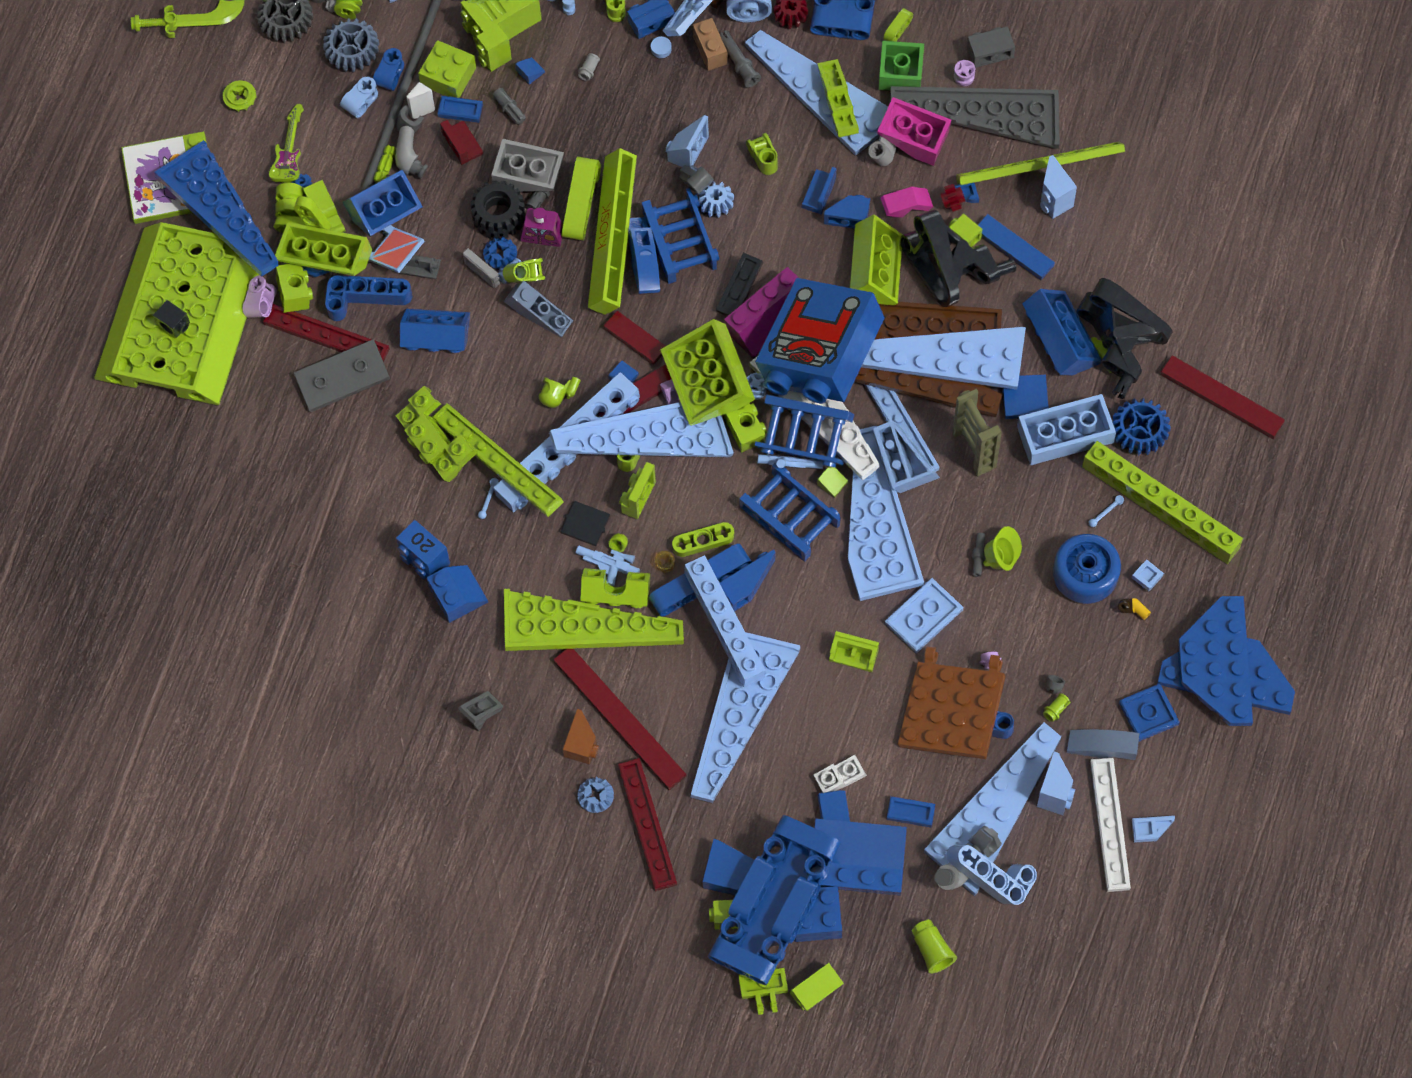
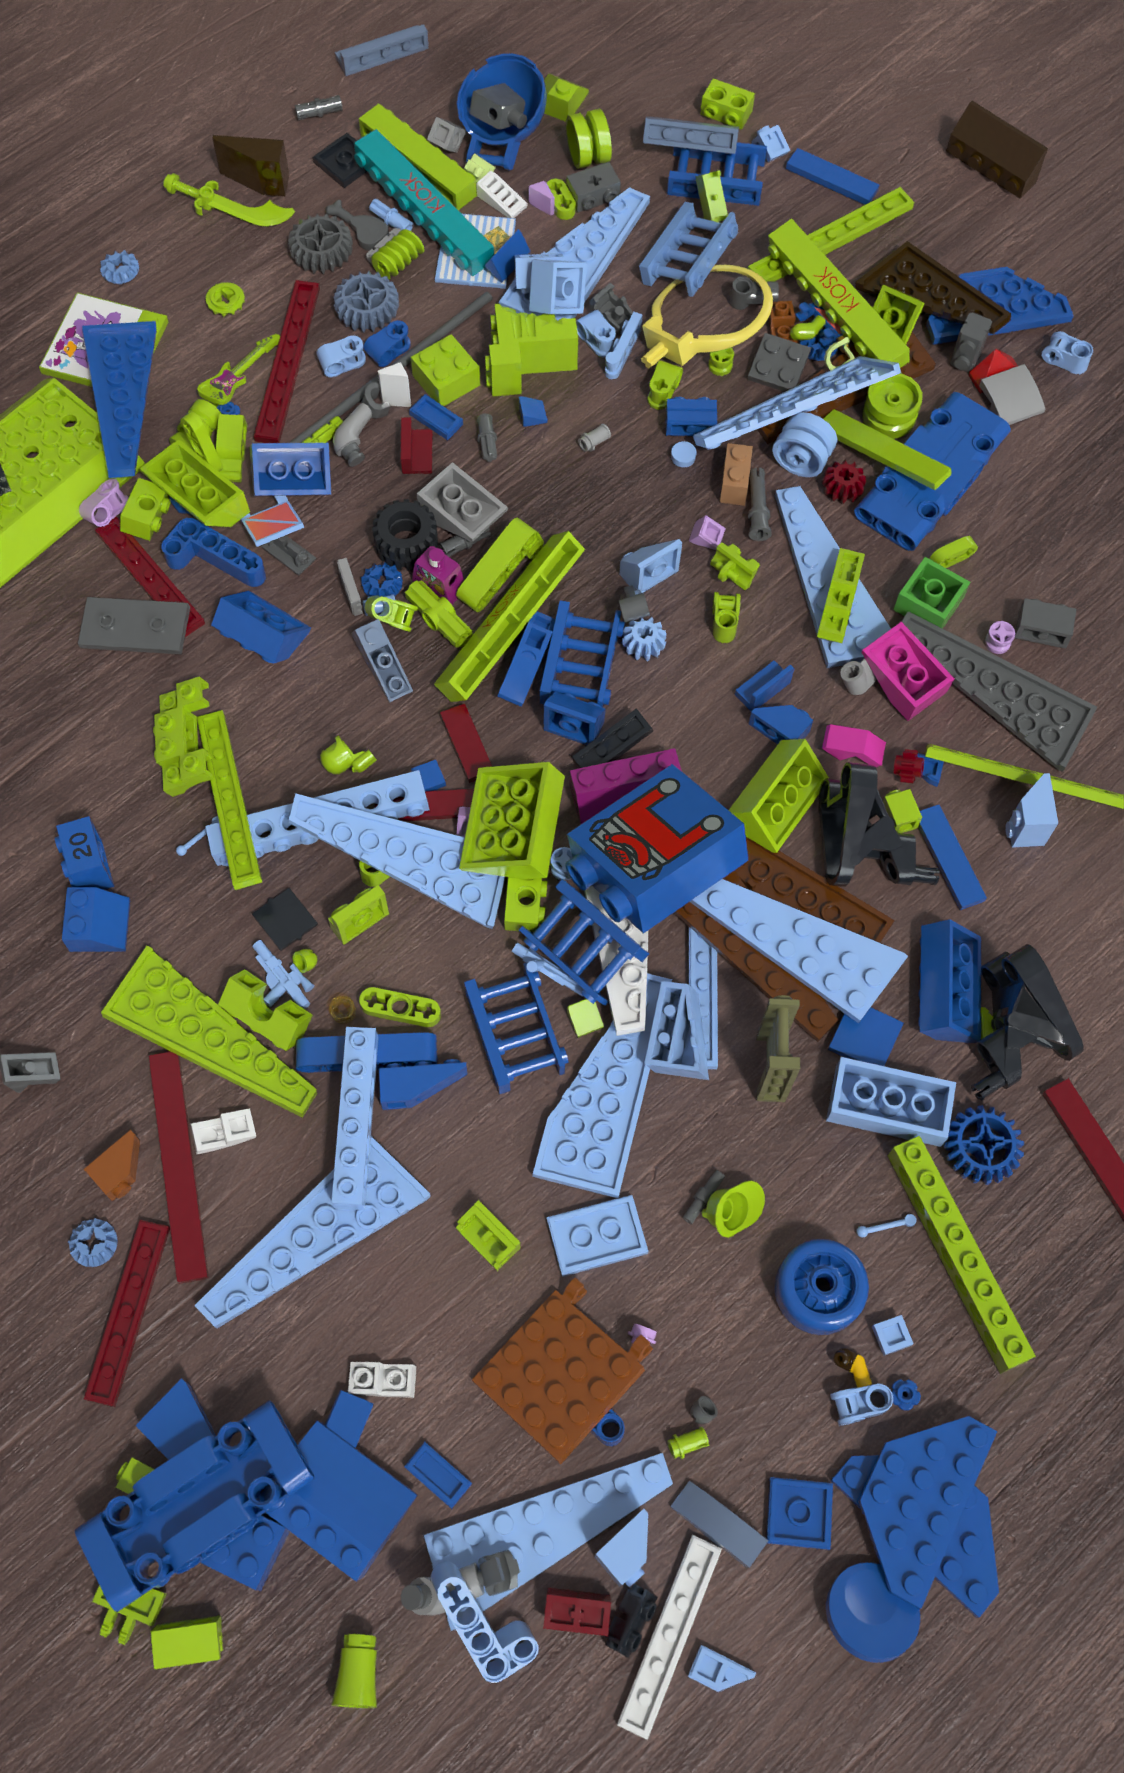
camera: 25 degrees right, 0 degrees up
(147, 113) = (123, 273): none -> medium blue gear
(319, 121) = (287, 362): none -> dark red tile
(558, 255) = (438, 614): none -> lime piece
(636, 681) = (223, 1132): none -> white slope
(702, 281) = (573, 718): none -> blue slope
(713, 98) = (707, 533): none -> lavender slope
(748, 114) = (733, 566): none -> lime hips
(1046, 839) = (577, 1611): none -> dark red hinge
(1084, 835) = (626, 1635): none -> black hinge
(1148, 629) = (859, 1403): none -> light blue piece
(1179, 611) = (899, 1400): none -> blue plate
(1223, 745) = (868, 1617): none -> blue piece

